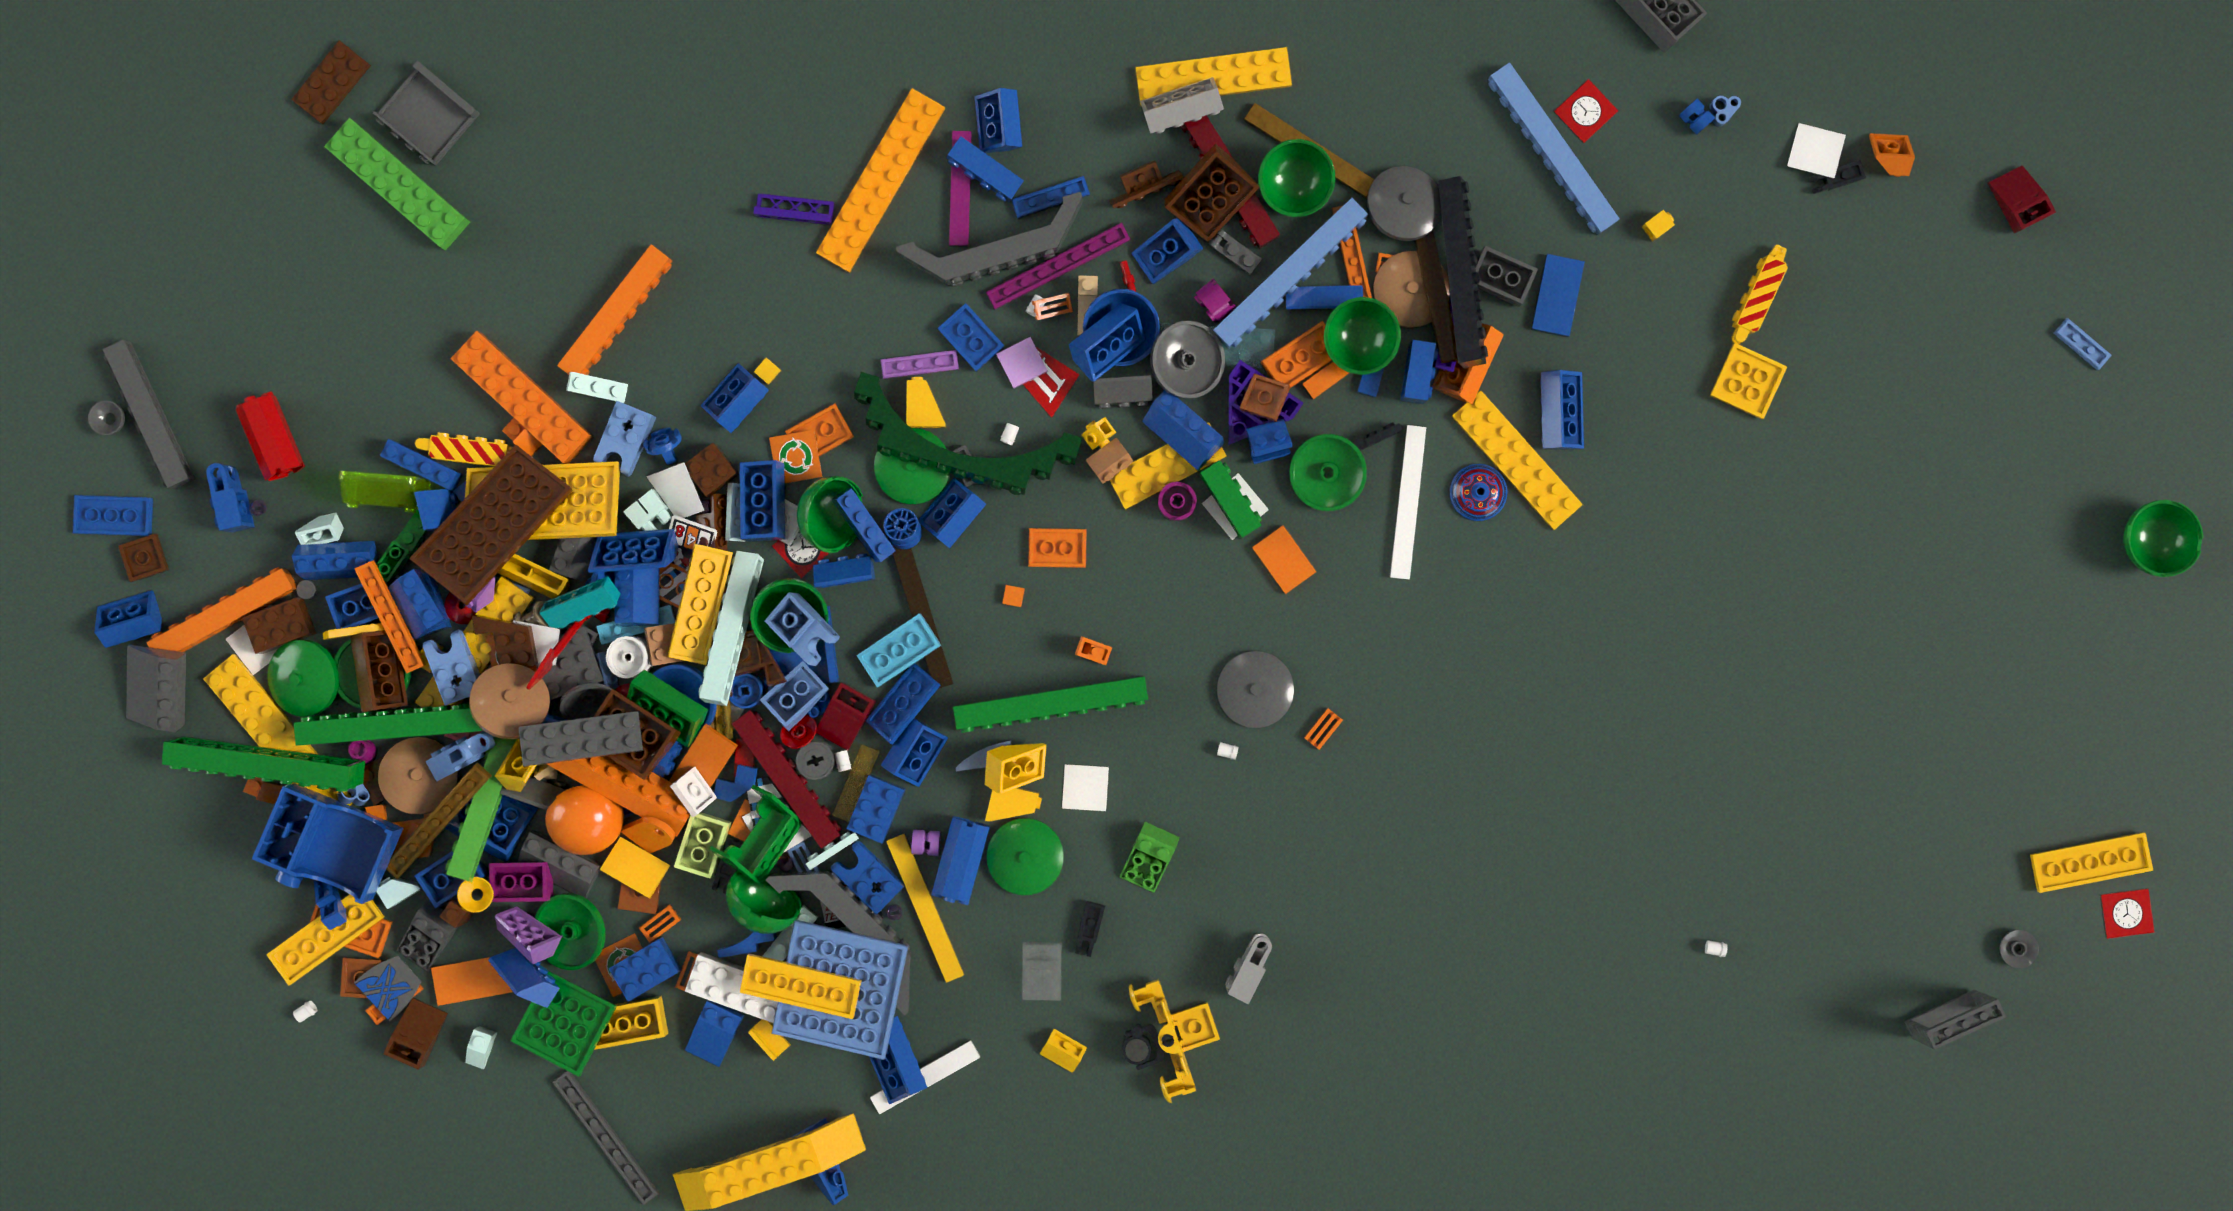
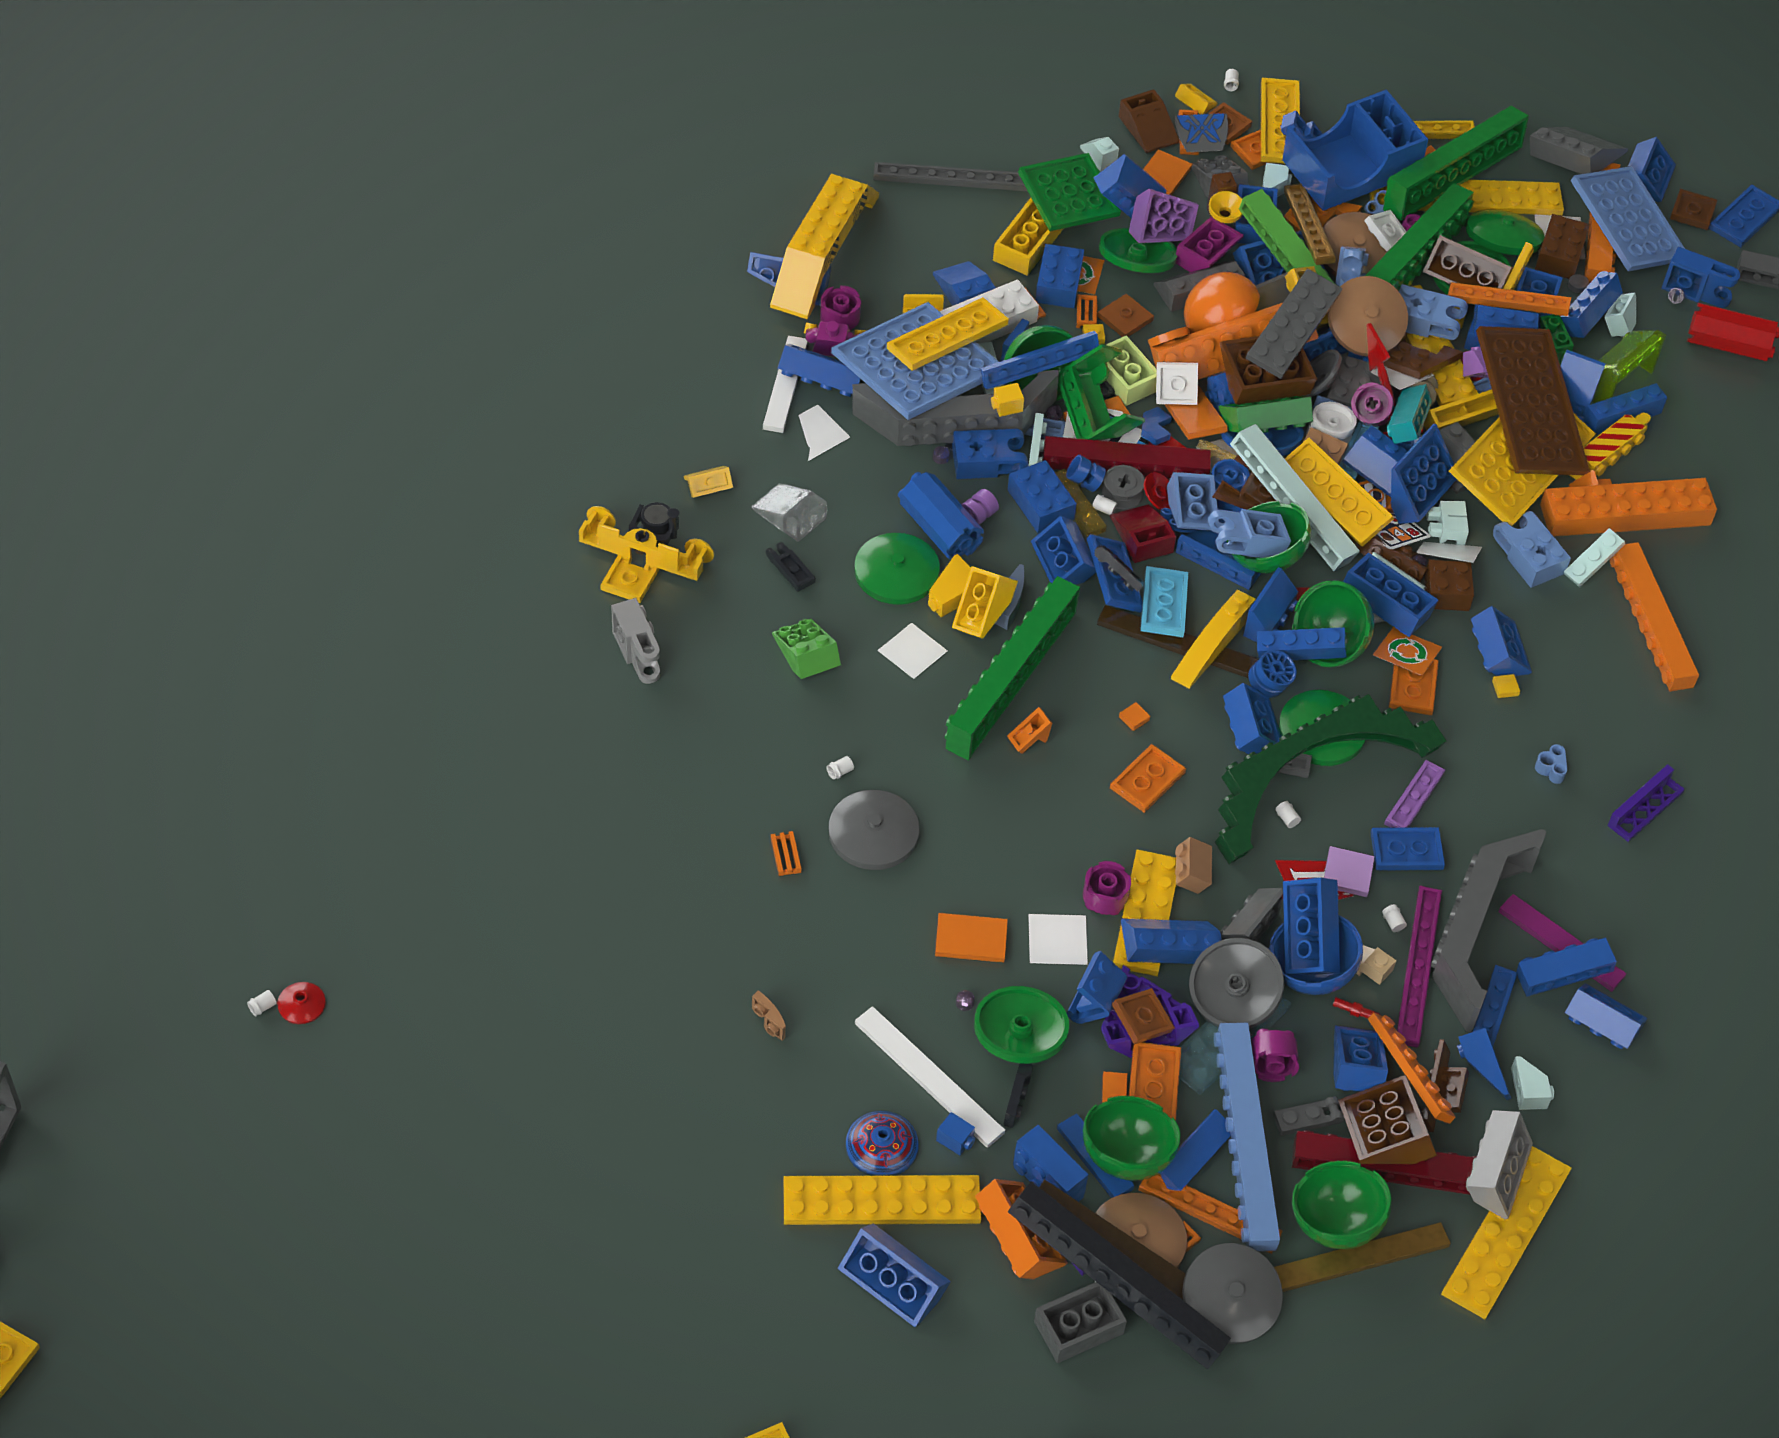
camera: 125 degrees right, 35 degrees down
(208, 592) = (1628, 217): none -> medium blue plate
(220, 814) = (1444, 129): none -> yellow tile
(349, 1023) = (1195, 98): none -> yellow slope
(388, 759) = (1385, 228): none -> white plate
(592, 637) = (1361, 401): none -> magenta brick
(634, 867) = (1147, 320): yellow tile -> none
(663, 443) = (1502, 566): blue tile -> none
(679, 900) = (1098, 328): none -> yellow plate
(771, 896) = (1038, 360): none -> blue plate
(809, 289) = (1557, 764): none -> medium blue piece
(816, 1105) = (841, 306): none -> magenta brick
(830, 793) = (1084, 472): none -> blue wheel
(831, 889) = (1008, 399): none -> yellow brick
(860, 1076) = (828, 335): none -> magenta torso
(880, 180) = (1622, 890): light orange plate -> none
(904, 698) = (1117, 567): none -> black hinge
(907, 589) = (1214, 638): none -> yellow slope
(921, 406) = (1373, 768): yellow slope -> none
(925, 908) = (904, 470): yellow tile -> none
(945, 1015) = (820, 431): none -> white sticker
(1037, 309) = (1390, 909): orange tile -> none
(1094, 434) = (1231, 881): yellow brick -> none
(1097, 129) = (1531, 1085): none -> light aqua slope
(1103, 172) = (1482, 1057): none -> blue slope
(1153, 209) = (1413, 1070): none -> orange plate
(1230, 500) = (1069, 926): green brick -> none
(1329, 526) = (963, 1001): none -> clear purple hinge
(1437, 450) = (956, 1134): none -> blue brick
(1456, 626) = (773, 1020): none -> medium nougat slope
(1557, 295) = (1014, 1366): blue tile -> none
(1682, 923) = (303, 1010): none -> red dish

